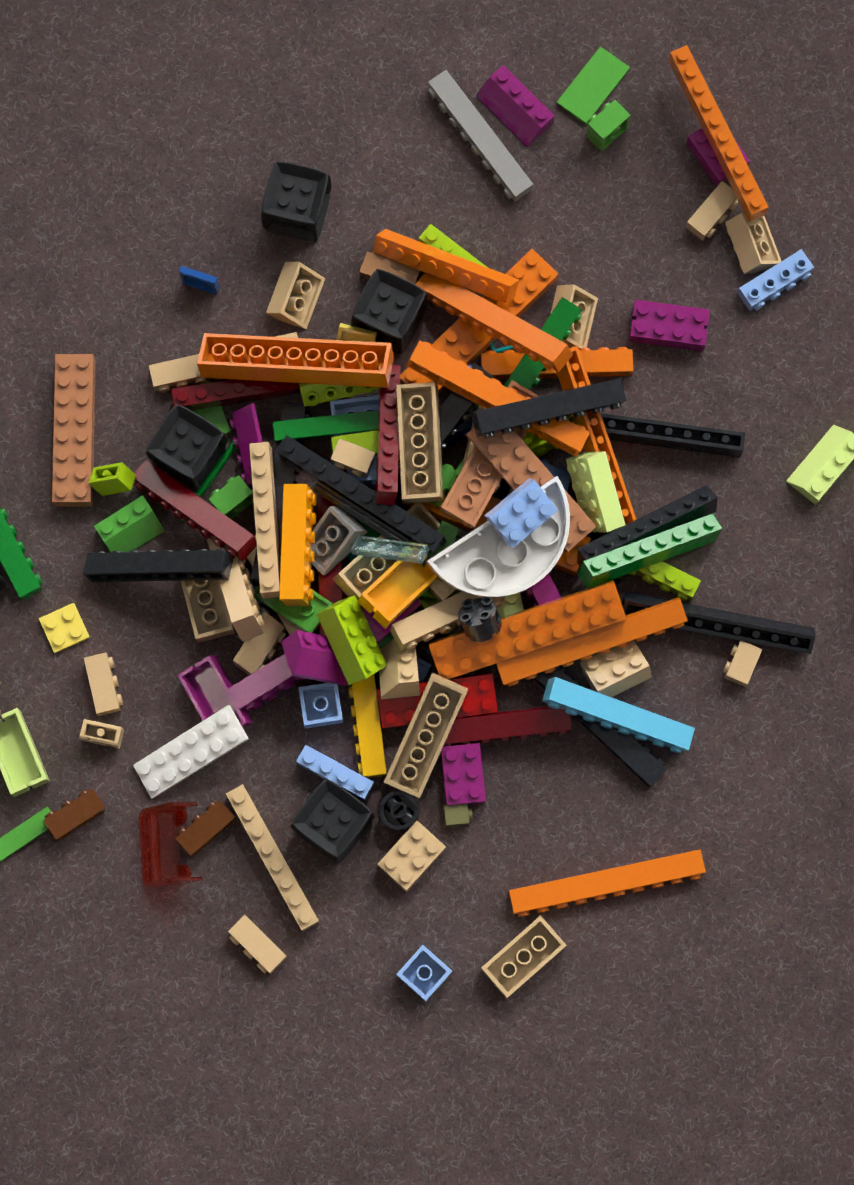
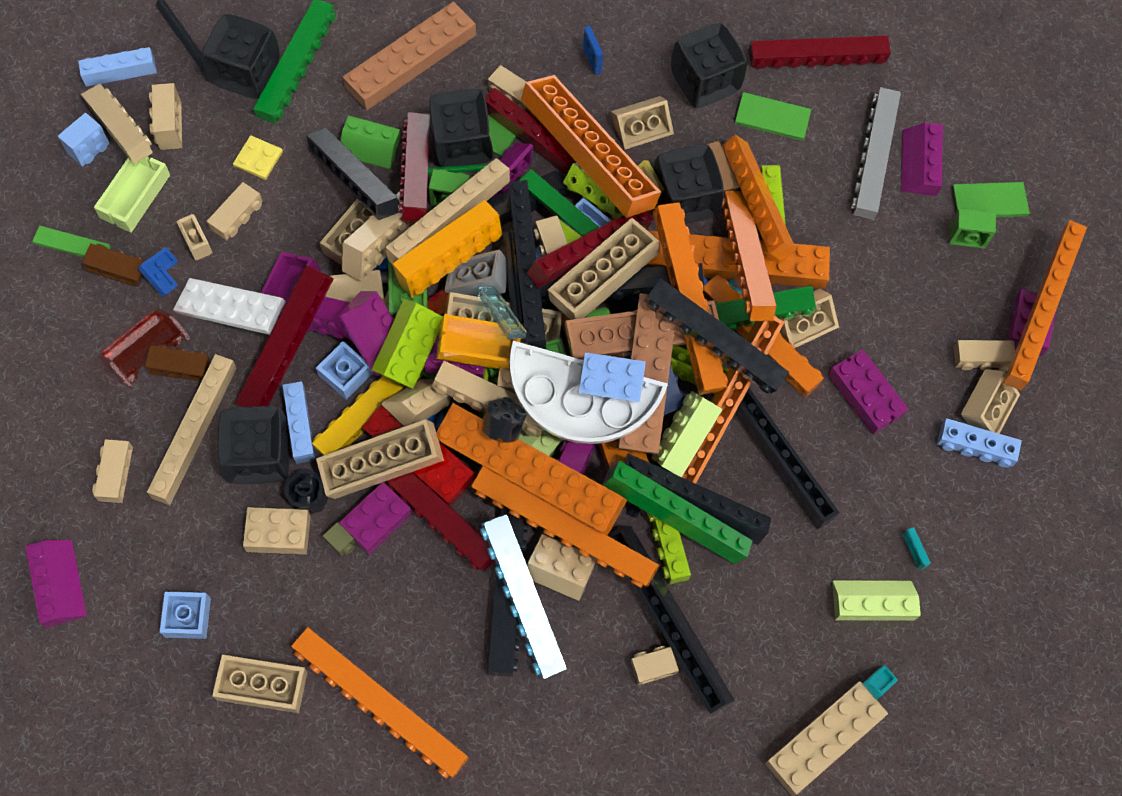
camera: 45 degrees right, 10 degrees down
(107, 787) = (156, 271): none -> blue plate
(112, 479) = (394, 101): lime brick -> none
(264, 730) = (285, 338): none -> dark red brick
(315, 1050) = (55, 582): none -> magenta slope
(352, 98) = (819, 51): none -> dark red brick
(377, 186) = (773, 116): none -> bright green tile
(814, 400) = (916, 549): none -> teal tile

